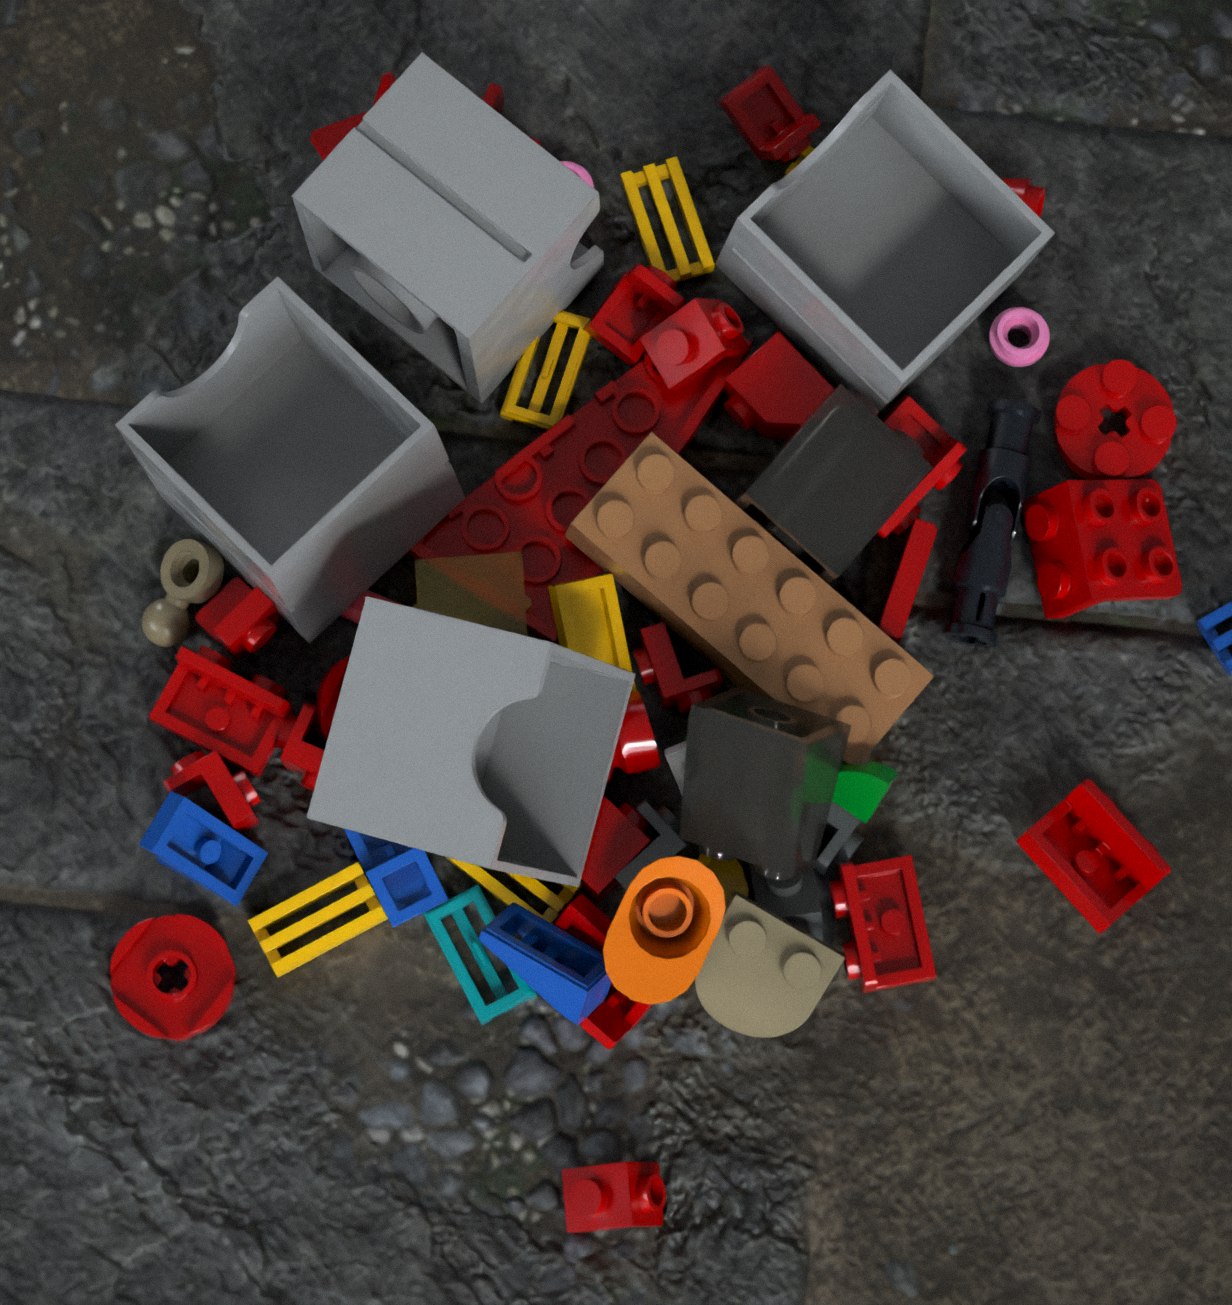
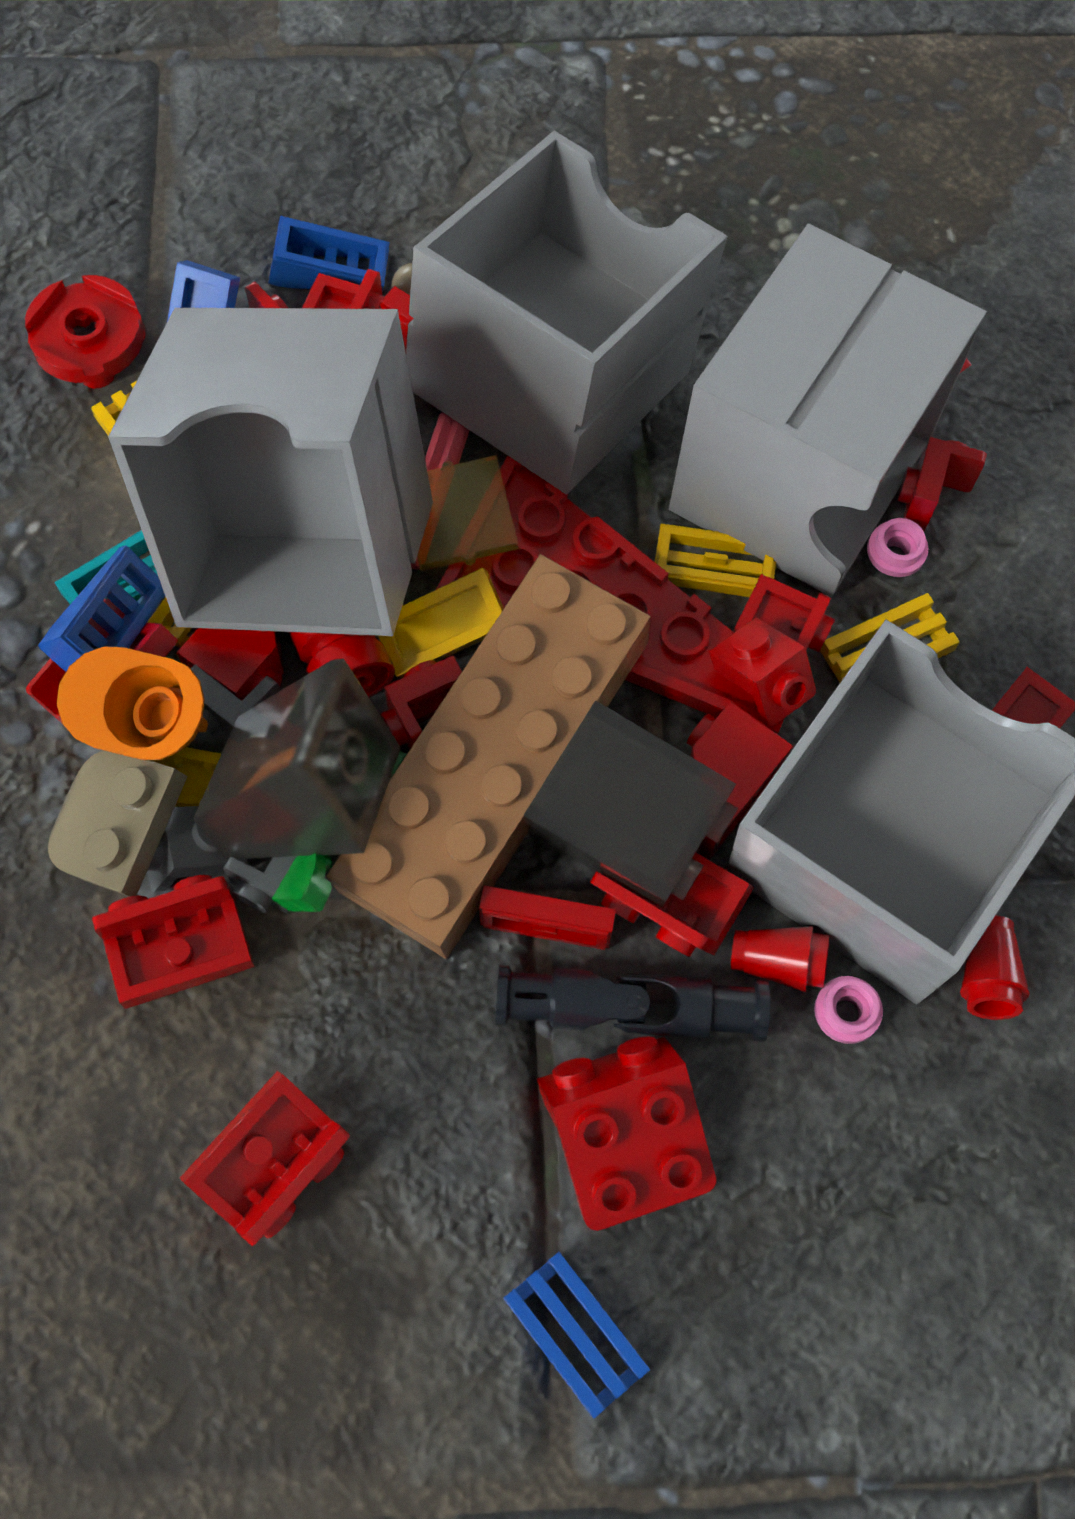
camera: 80 degrees right, 10 degrees down
(109, 759) = (310, 239): none -> blue slope
(965, 382) = (782, 955): none -> red cone
(1121, 389) = (813, 1126): red plate -> none

